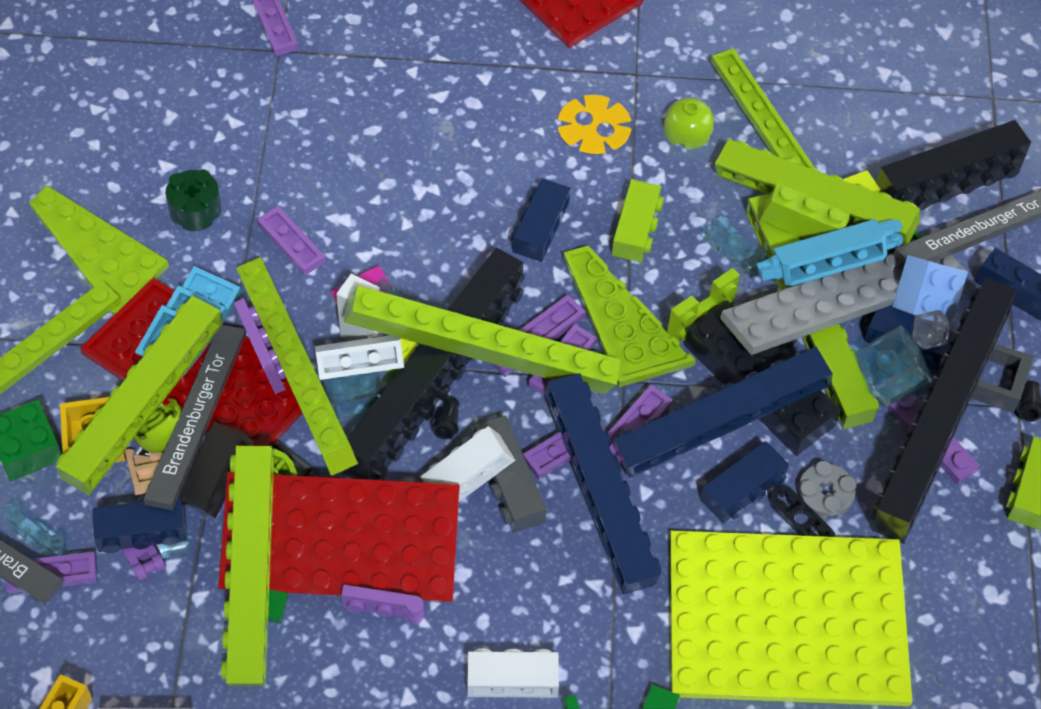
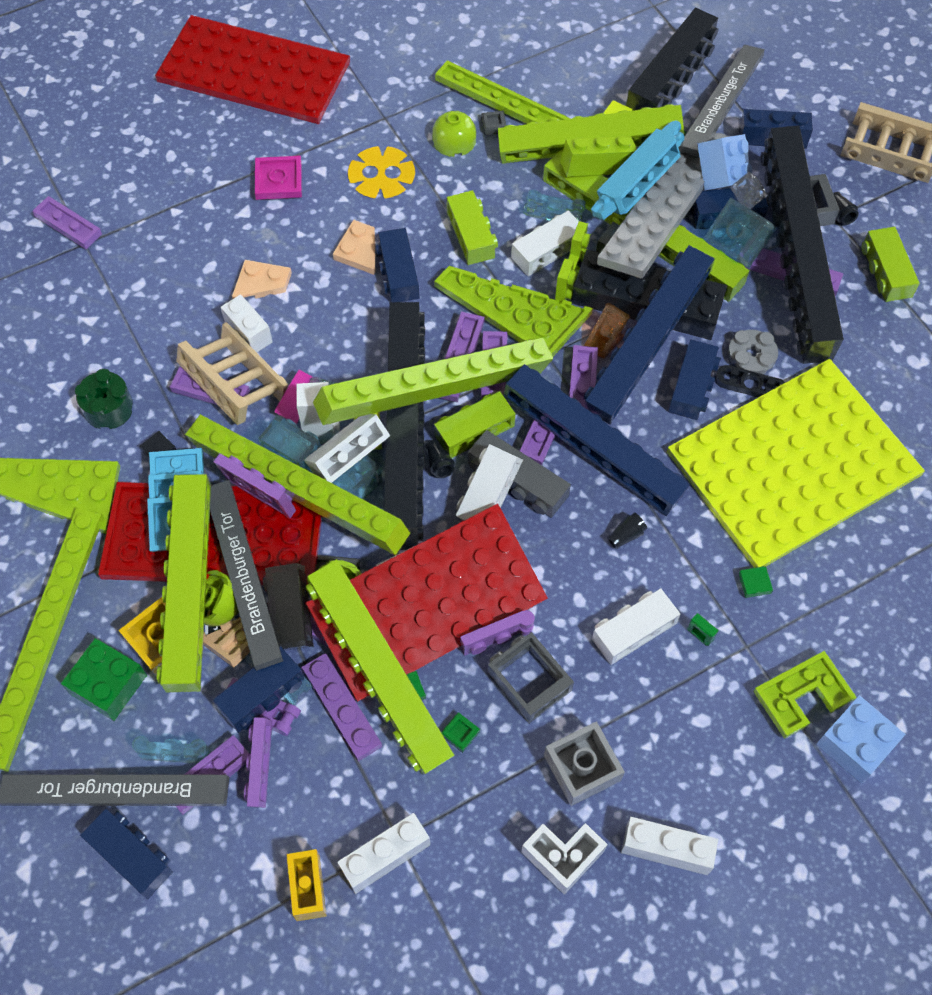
camera: 30 degrees left, 5 degrees up
(96, 587) = (258, 763): none -> medium lavender plate
(202, 586) = (342, 707): none -> medium lavender plate
(212, 264) = (156, 443): none -> black tile
(287, 670) = (460, 732): none -> green tile
(296, 246) = (222, 390): none -> tan fence
(315, 325) = (289, 441): none -> clear light blue brick
(363, 200) = (247, 322): none -> white brick
(382, 687) = (521, 645): none -> dark grey window
(408, 166) = (261, 279): none -> light nougat wing
(489, 401) = (464, 428): none -> lime brick
(491, 79) = (278, 177): none -> dark pink plate
(517, 182) = (357, 247): none -> light nougat wing
(572, 584) = (628, 530): none -> black cone
(693, 385) = (607, 330): none -> clear orange slope
(694, 273) = (544, 243): none -> white brick
(737, 130) = (492, 121): none -> dark grey tile

